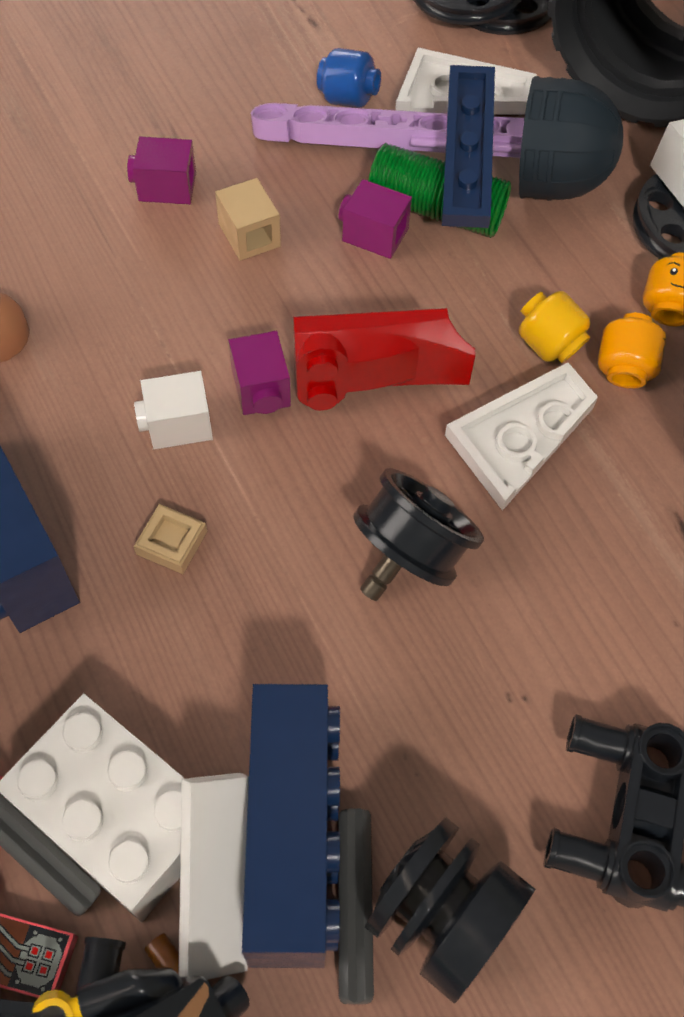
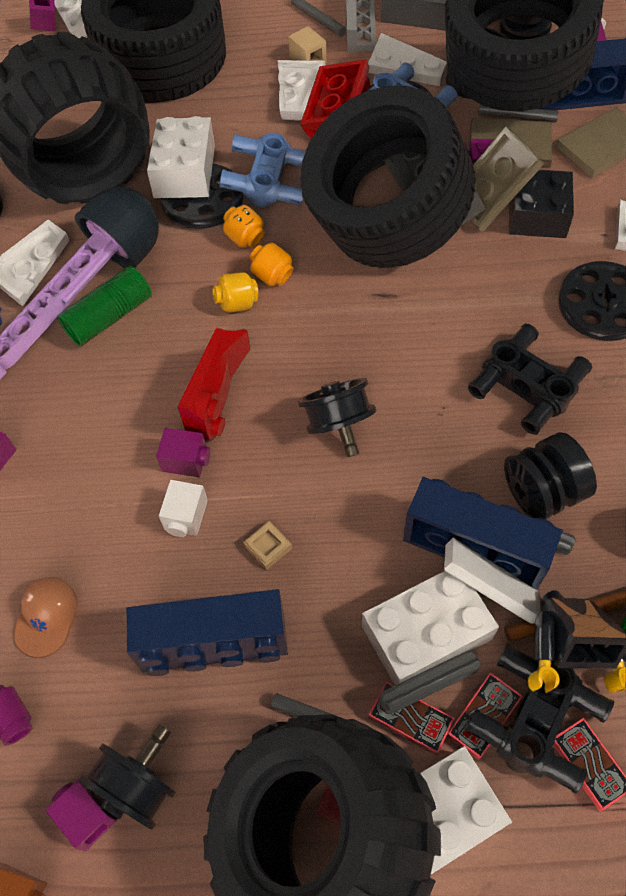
camera: 60 degrees left, 0 degrees up
(248, 218) = (58, 416): tan brick -> none
(375, 218) = (103, 347): magenta brick -> none
(469, 147) = (99, 269): dark blue plate -> none
(521, 430) = (291, 339): white wing -> none

